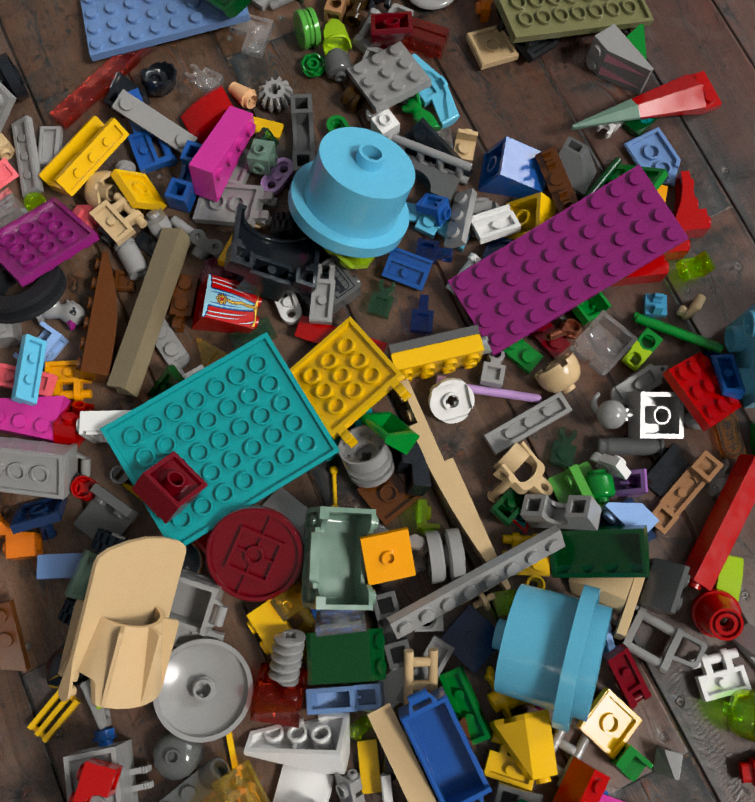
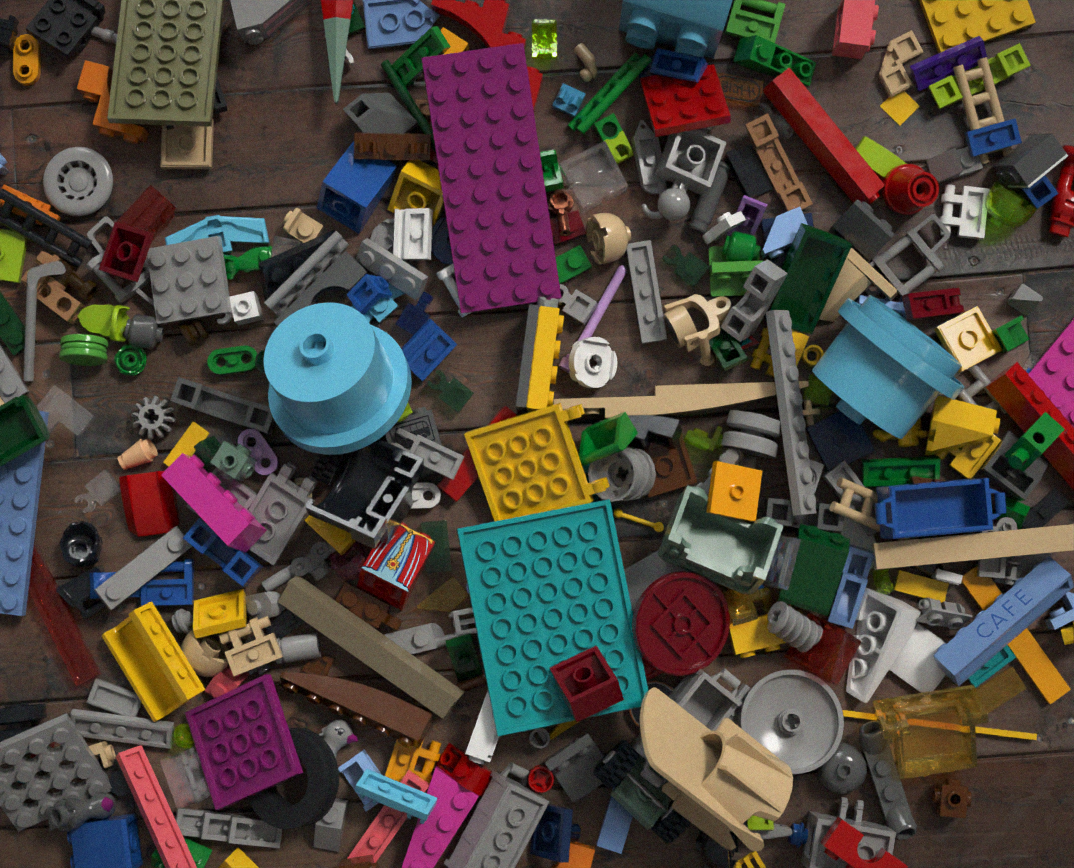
camera: 65 degrees left, 10 degrees up
(422, 318) = (489, 356): clear blue plate -> none

